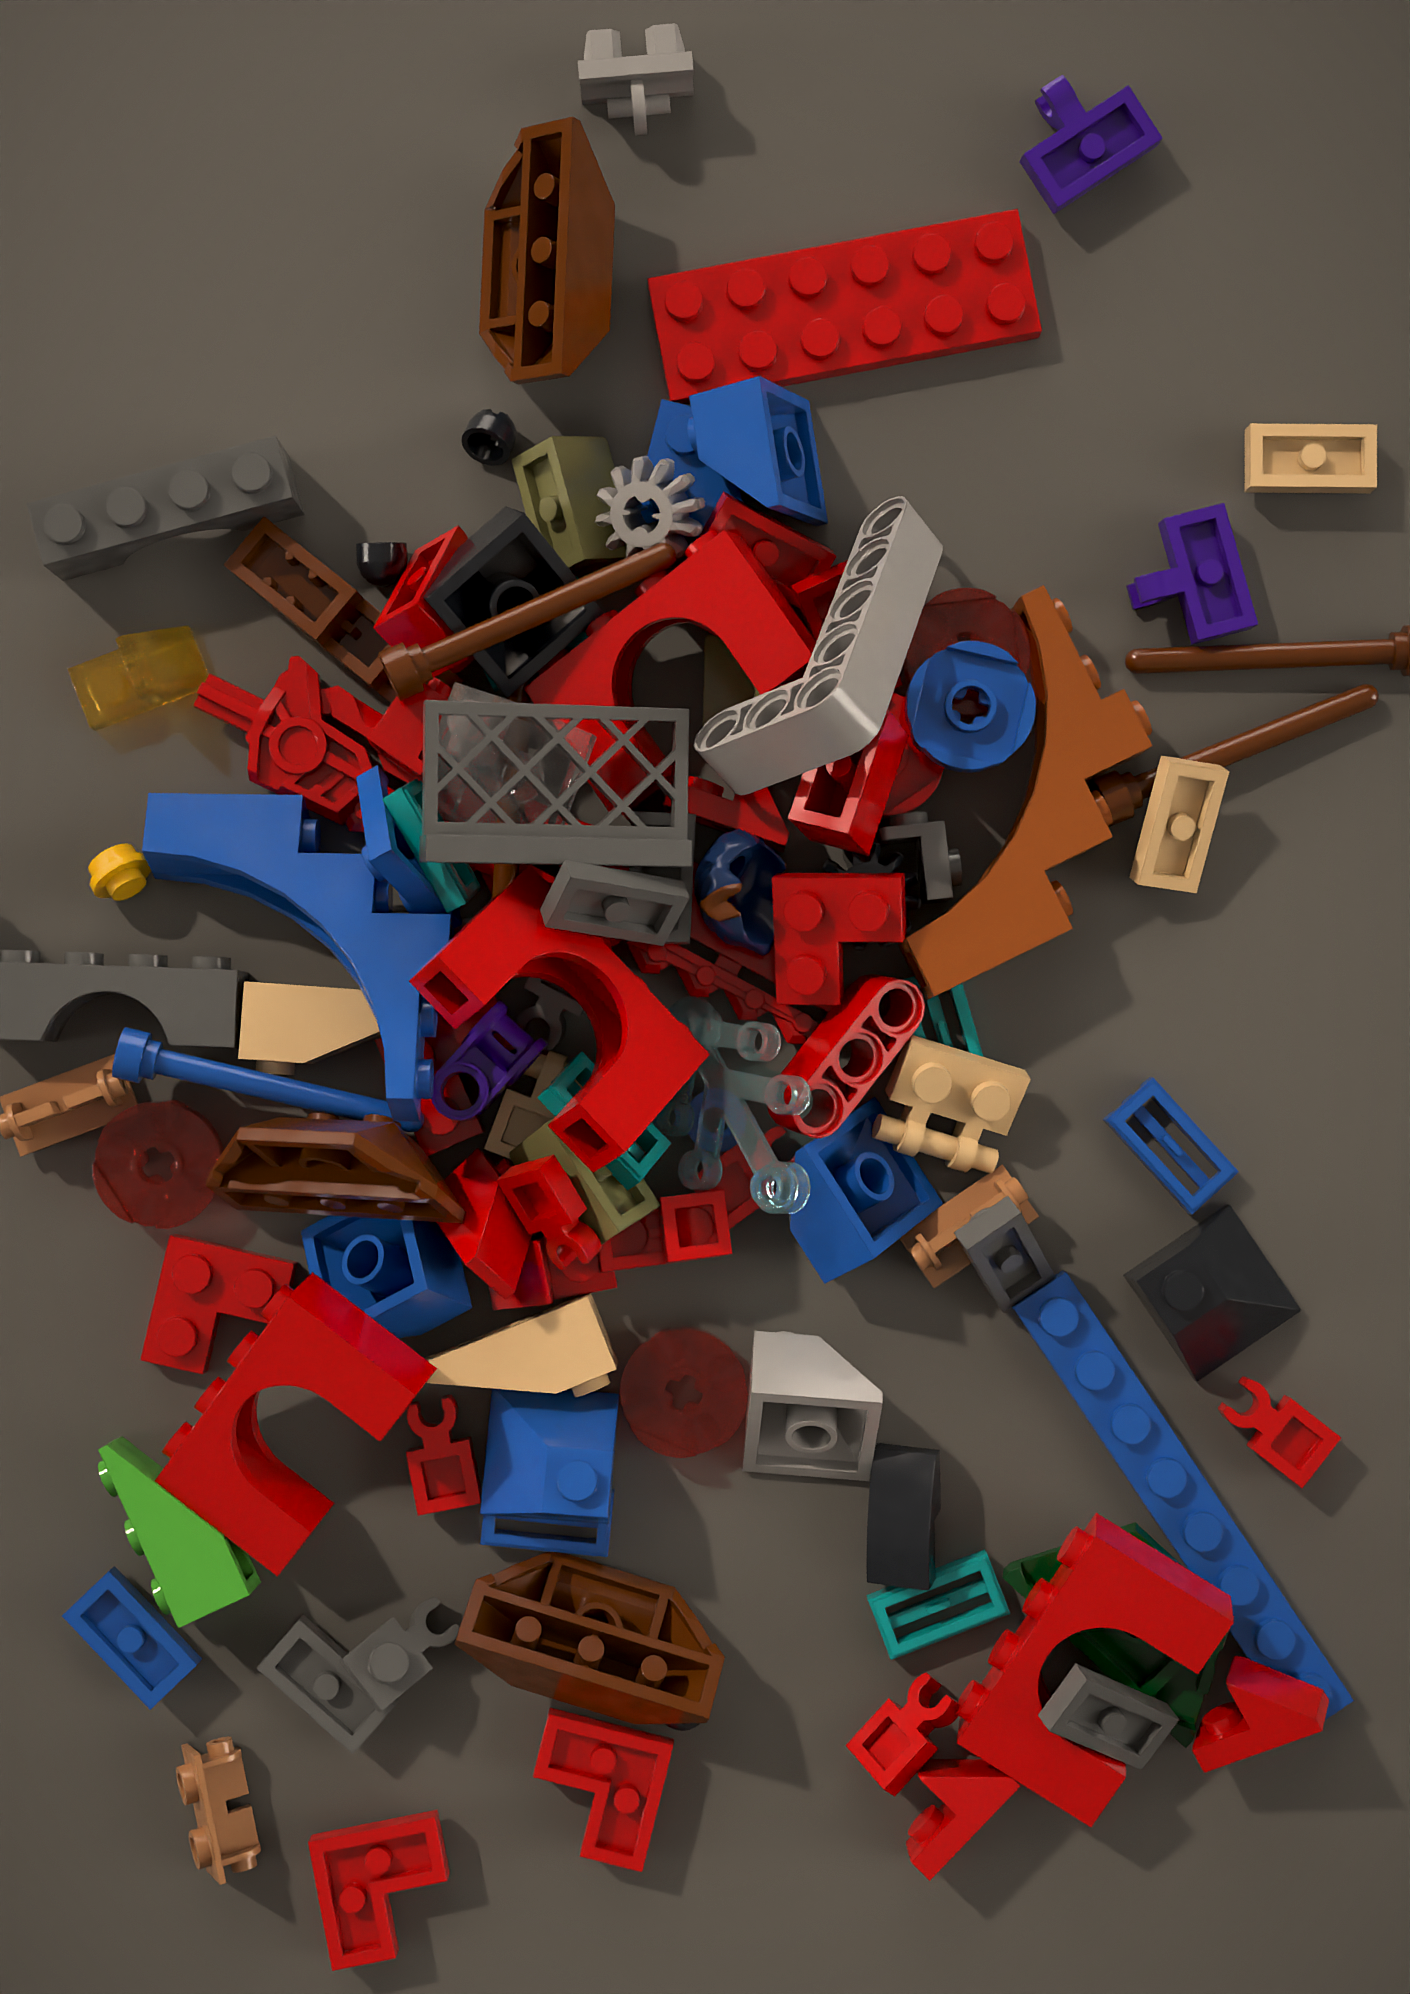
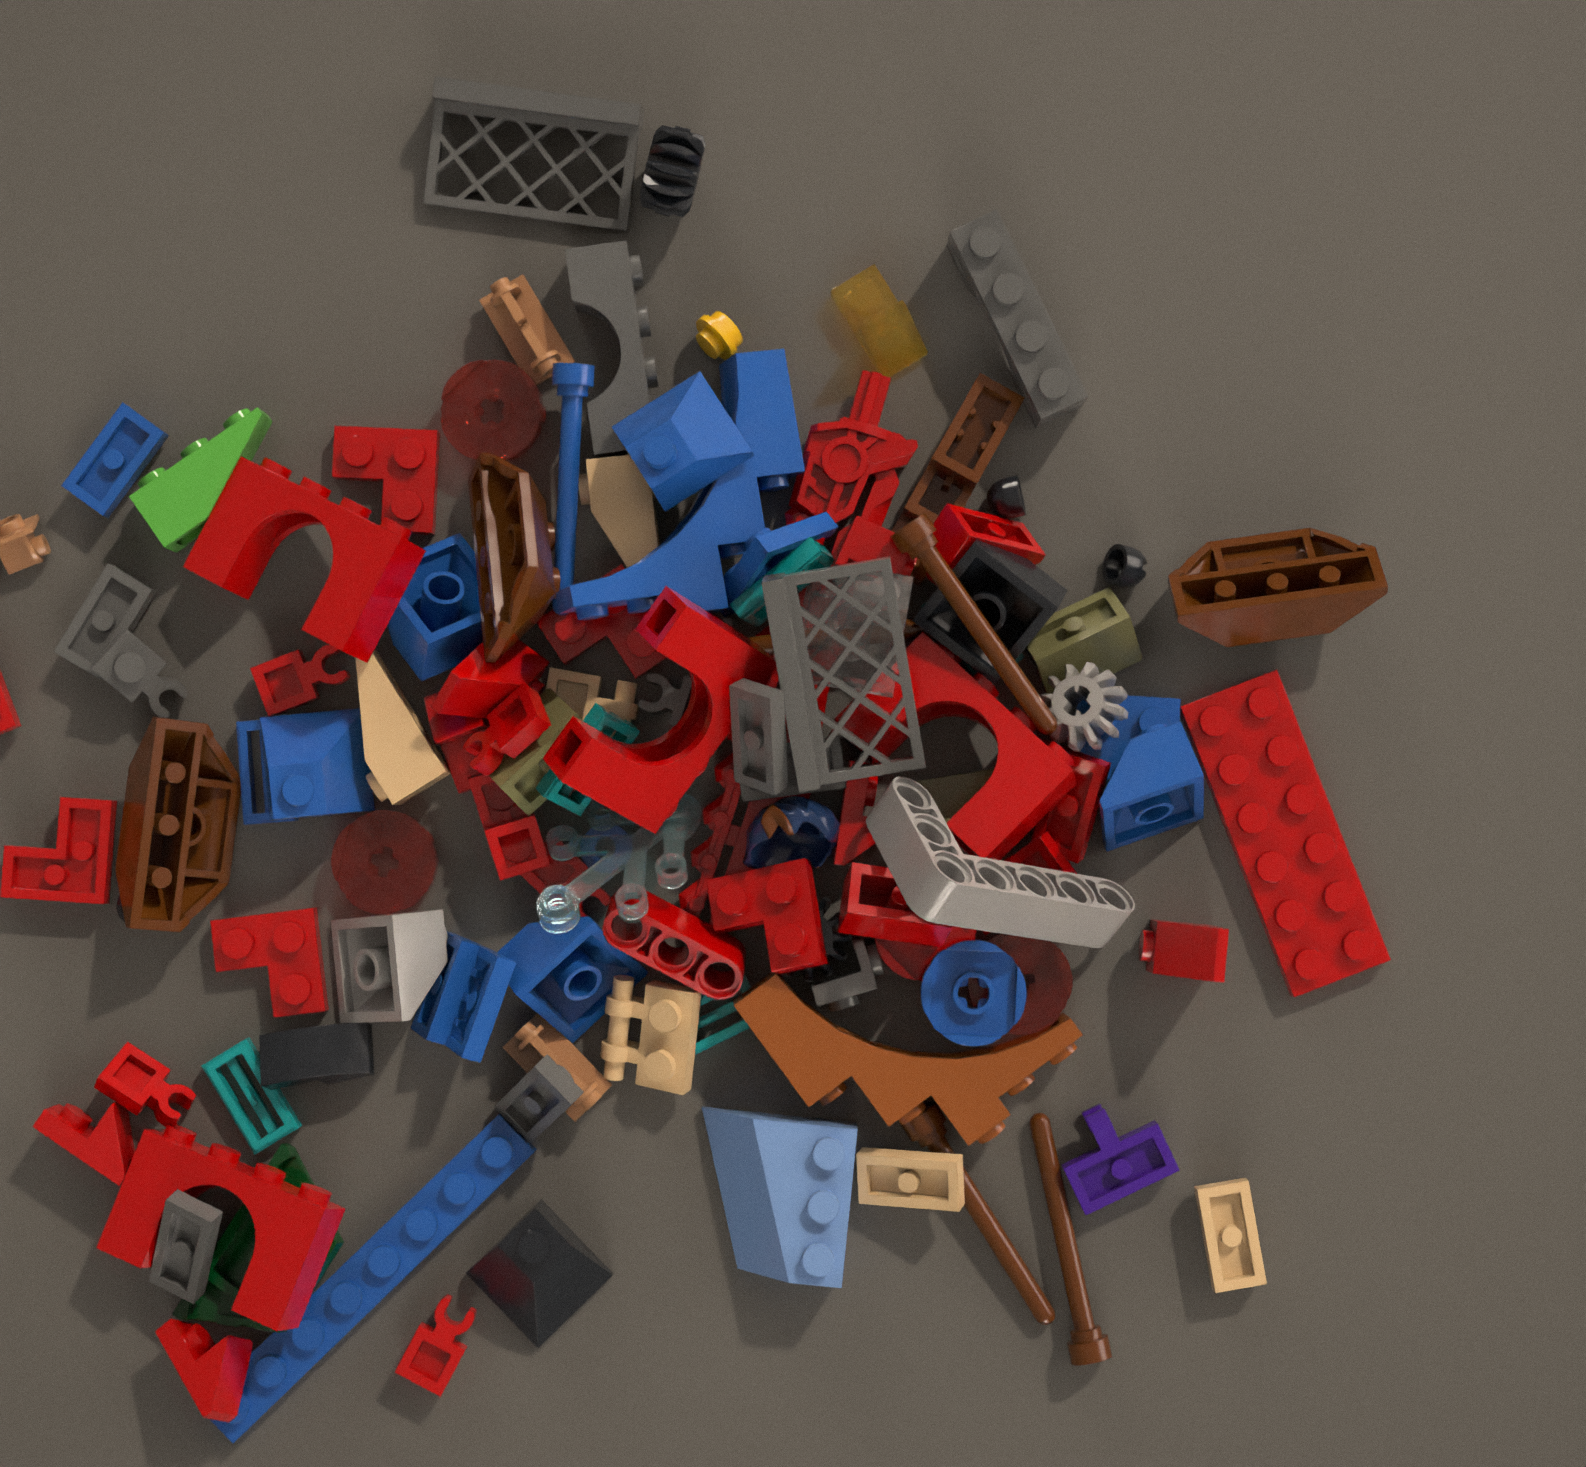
camera: 85 degrees right, 0 degrees up
(237, 934) = (682, 441): none -> blue slope
(488, 1062) = (618, 658): dark purple piece -> none
(636, 83) = (1435, 608): light grey hips -> none
(765, 1528) = (287, 945): none -> red plate
(868, 1321) = (465, 998): none -> blue slope
(964, 443) = (1185, 950): none -> red slope
(1087, 144) = (1454, 1007): dark purple plate -> none
(1134, 1106) = (679, 1183): blue tile -> none
(1168, 977) = (785, 1191): none -> medium blue wedge

